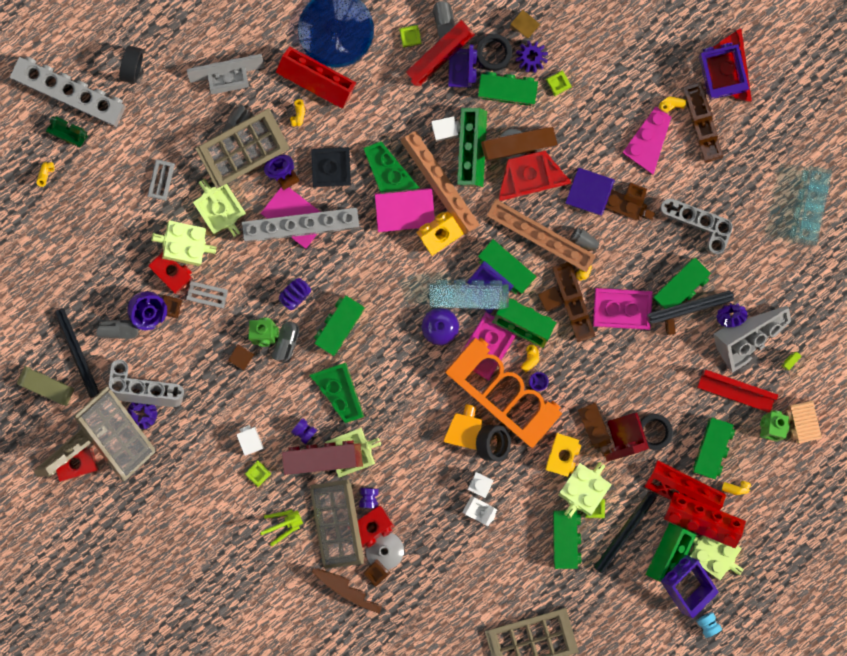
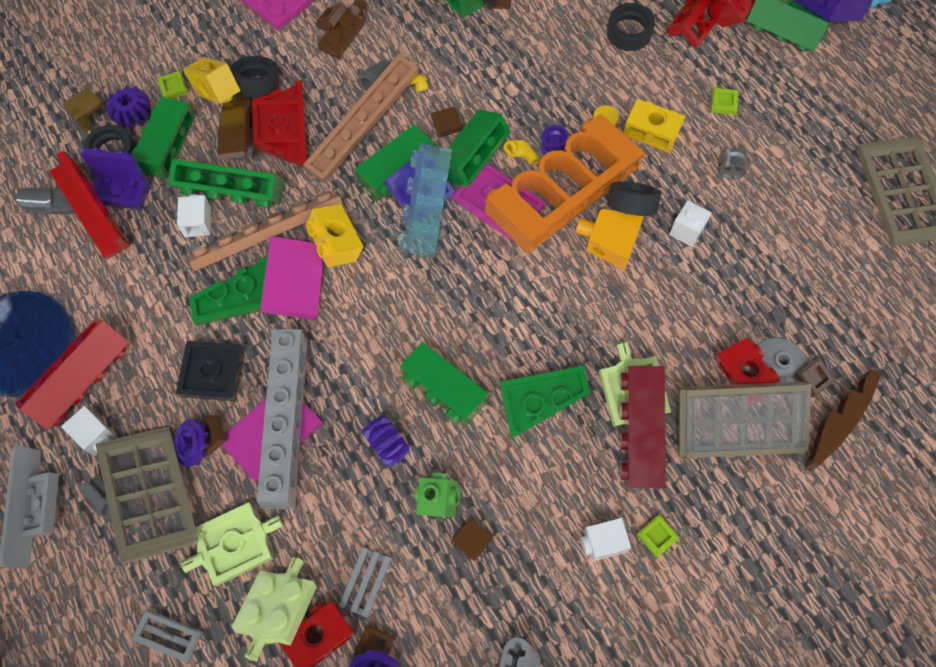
camera: 80 degrees left, 20 degrees down
(278, 99) = (87, 430): none -> white brick
(286, 342) = (458, 465): dark grey arm -> none
(291, 520) = (736, 490): lime plant -> none
(300, 112) = (128, 409): yellow arm -> none
(300, 428) = (597, 454): dark purple wheel -> none
(368, 499) = (703, 373): dark purple wheel -> none
(410, 36) = (58, 248): lime tile -> none
(440, 326) = (464, 253): dark purple cylinder -> none
(479, 511) = (727, 228): white bracket -> none
(536, 514) = (733, 163): none -> flat silver wheel
(555, 151) = (251, 66): none -> black tyre
(556, 117) = (212, 80): none -> yellow brick
(566, 540) = (767, 133): green brick -> none
(568, 418) = (608, 112): none -> yellow tile
(573, 301) = (460, 94): reddish brown slope -> none
(584, 489) = (704, 101): yellowish green plate -> none
(590, 191) = (317, 62): dark purple tile -> none
(595, 427) = (621, 89): reddish brown hinge -> none
(622, 308) = (471, 47): dark pink tile -> none
(625, 532) = (758, 71): black axle -> none
(627, 436) = (637, 48): dark red bracket -> none

